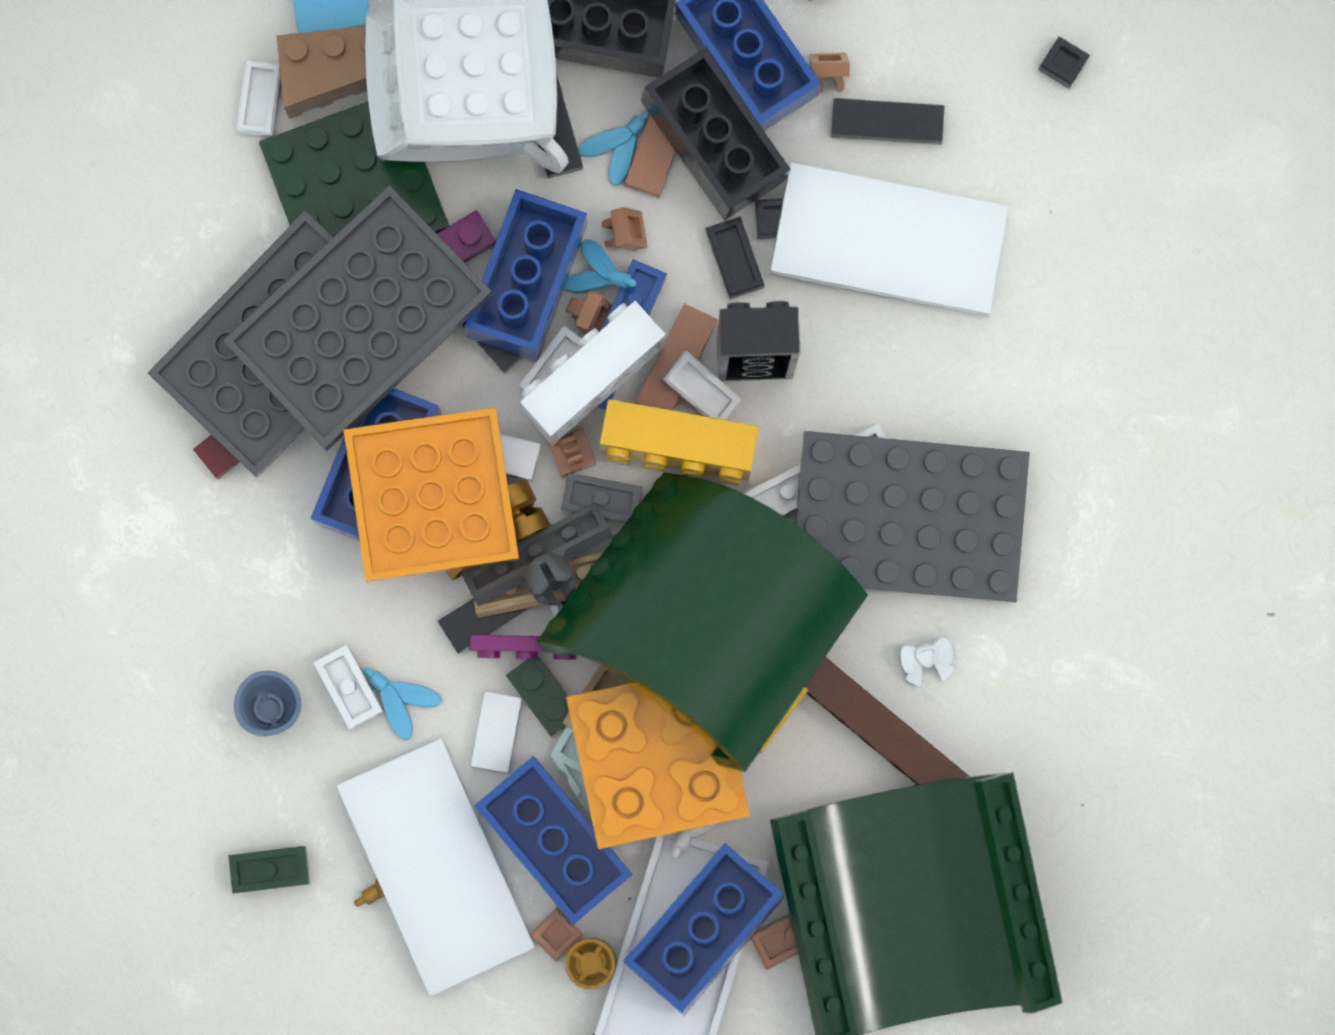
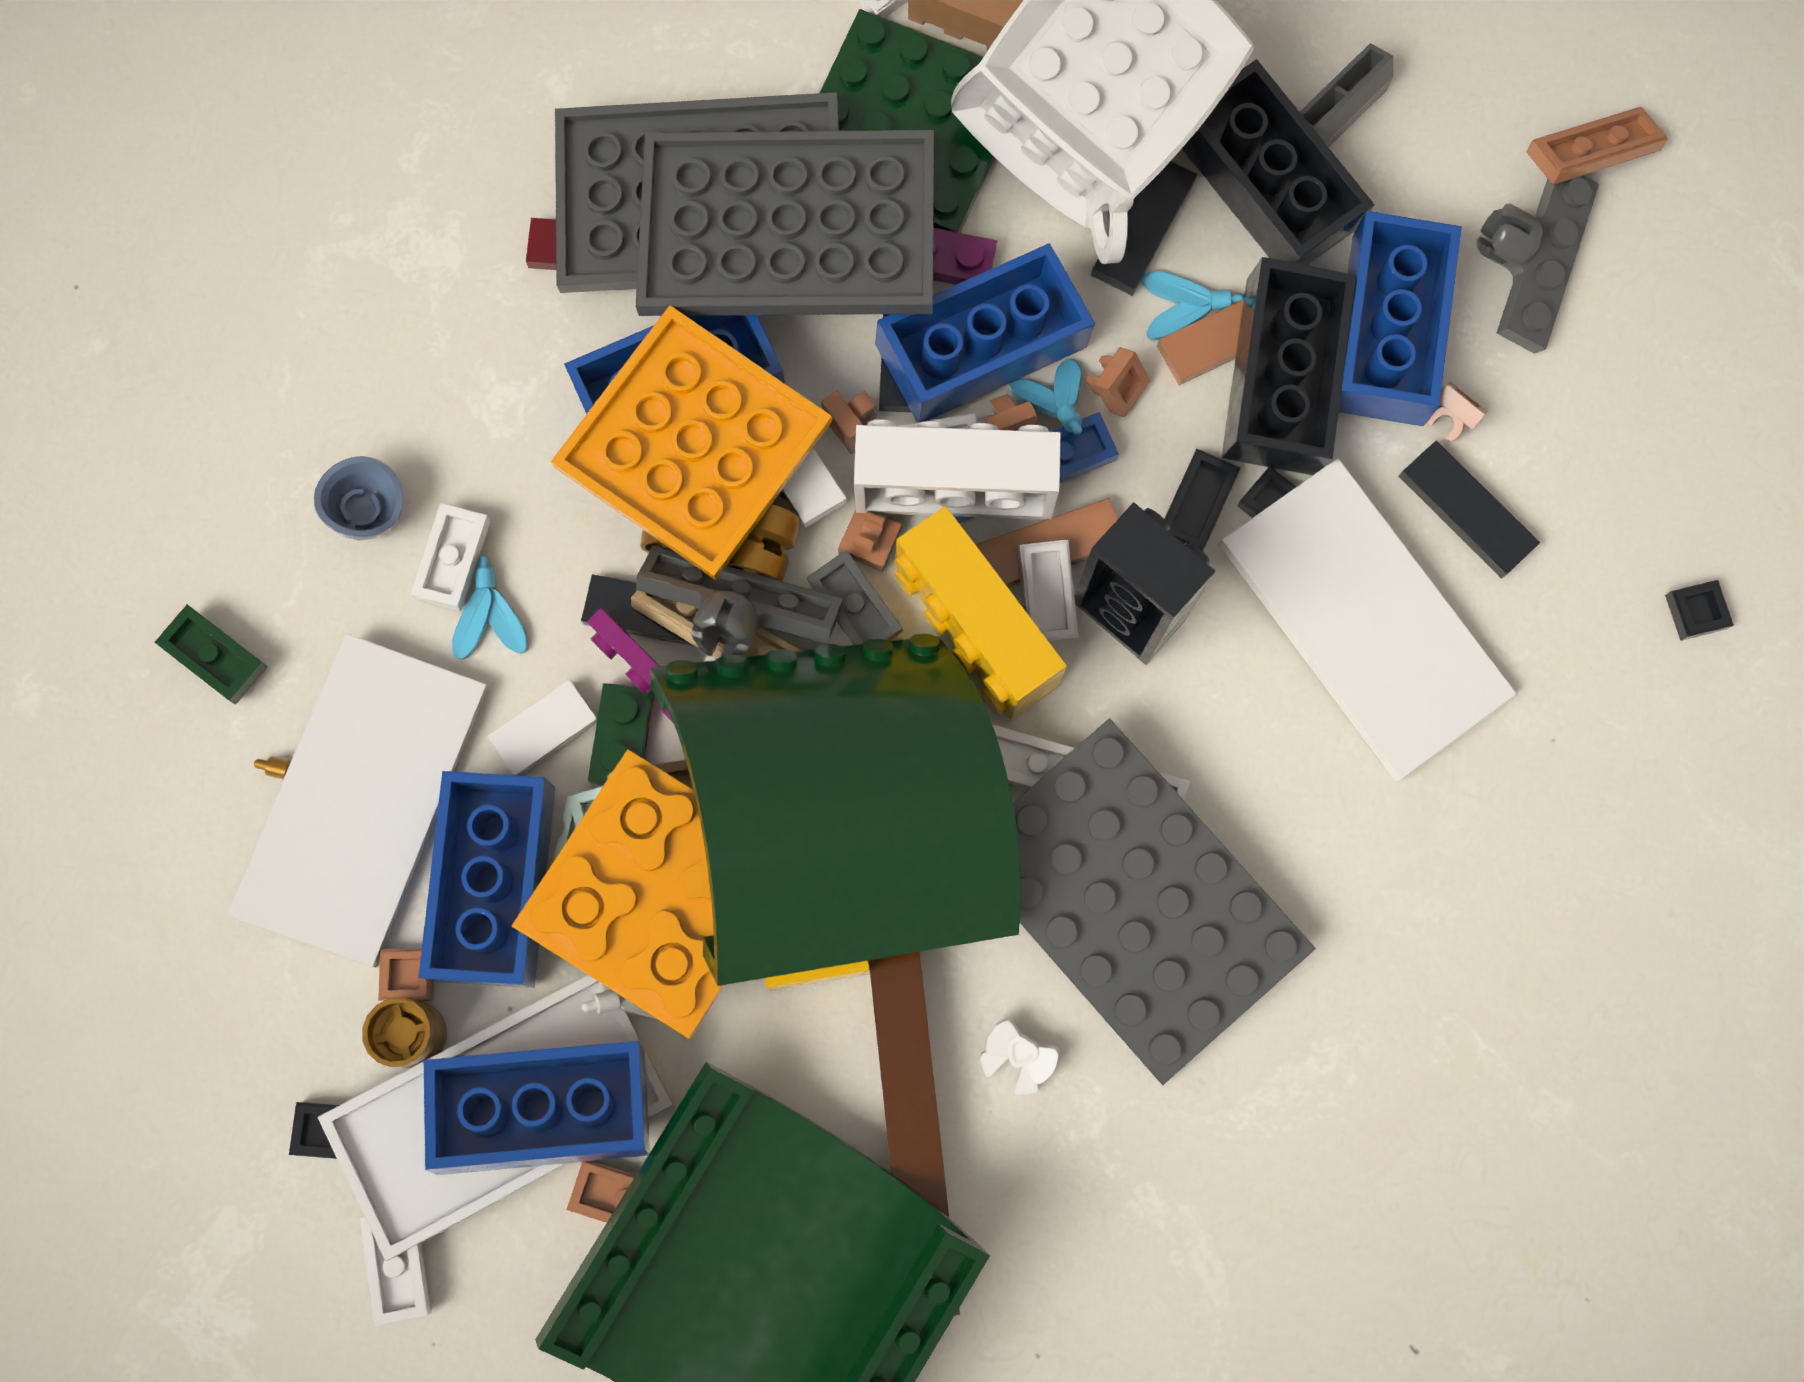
camera: 45 degrees right, 5 degrees down
(495, 395) = (847, 416): none -> nougat tile

